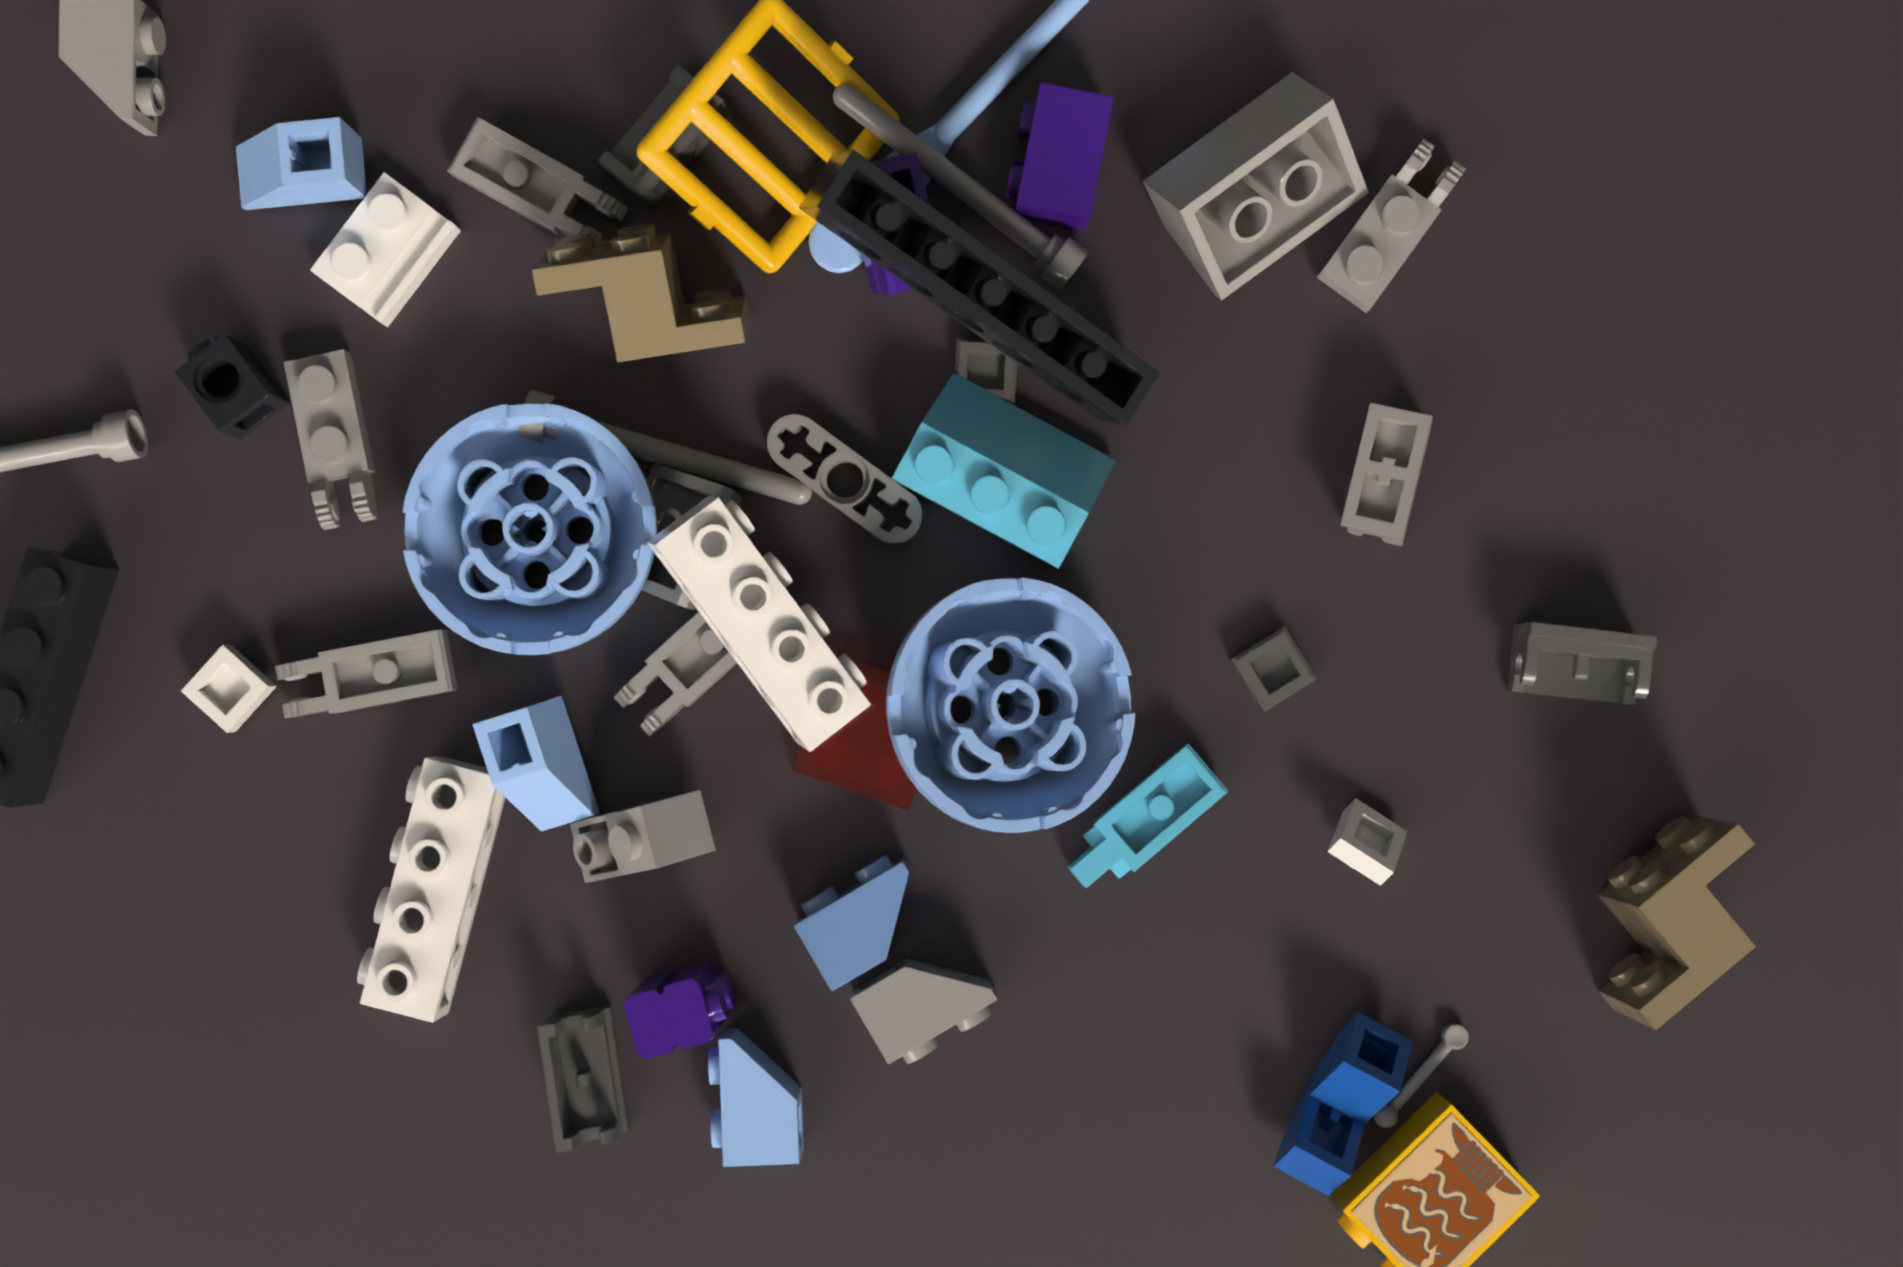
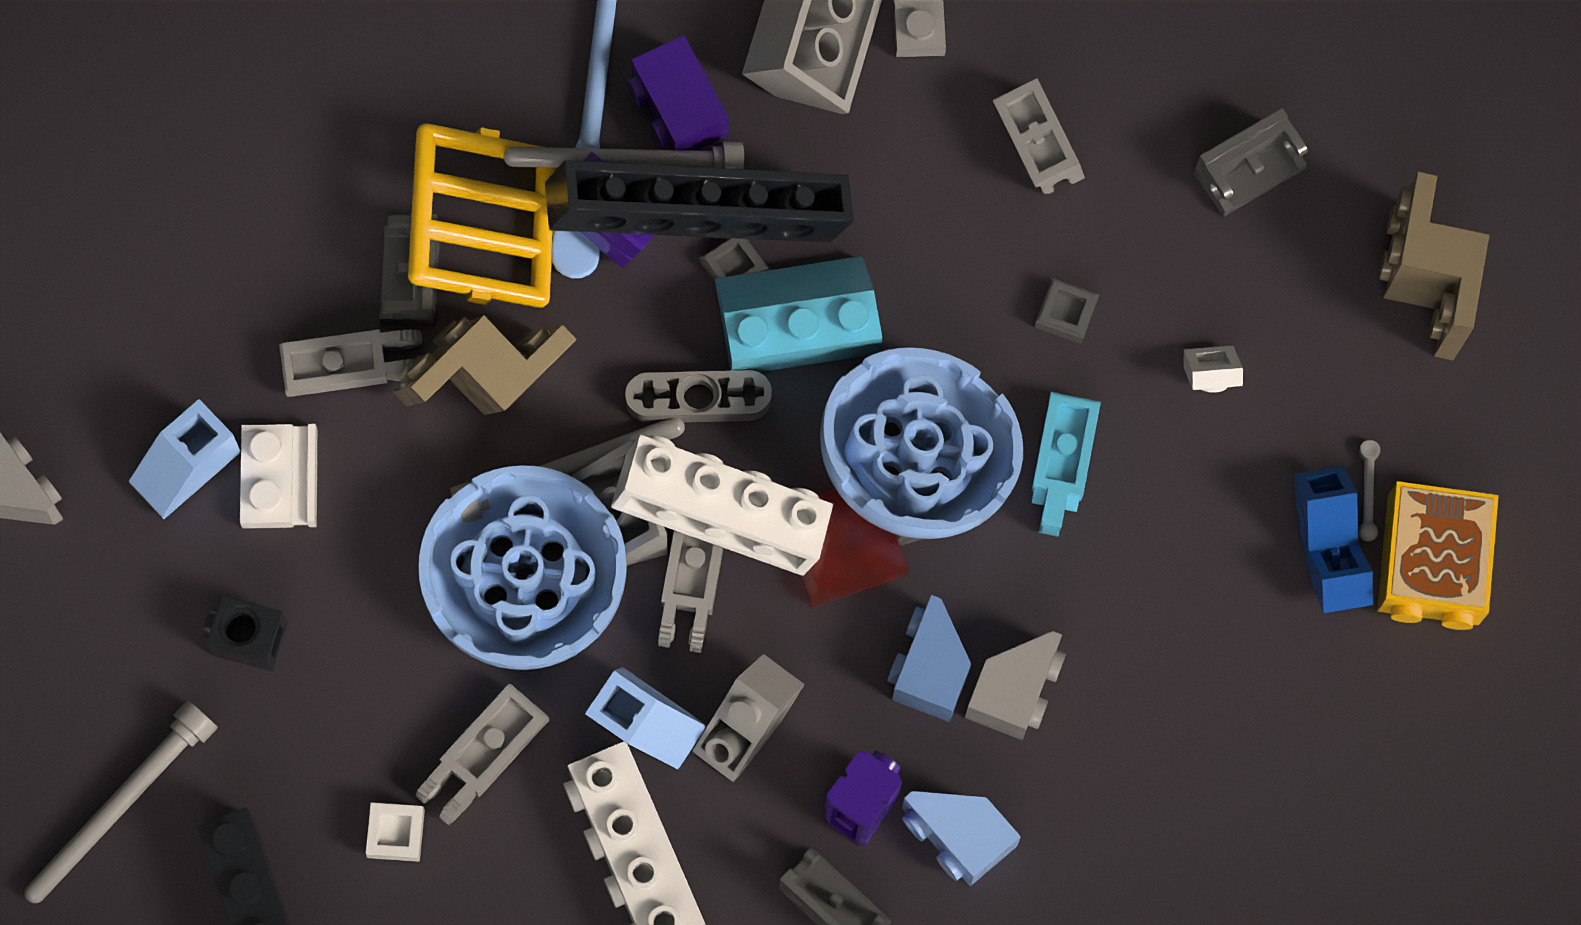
camera: 45 degrees left, 15 degrees down
(332, 433) = (333, 617): light grey hinge -> none

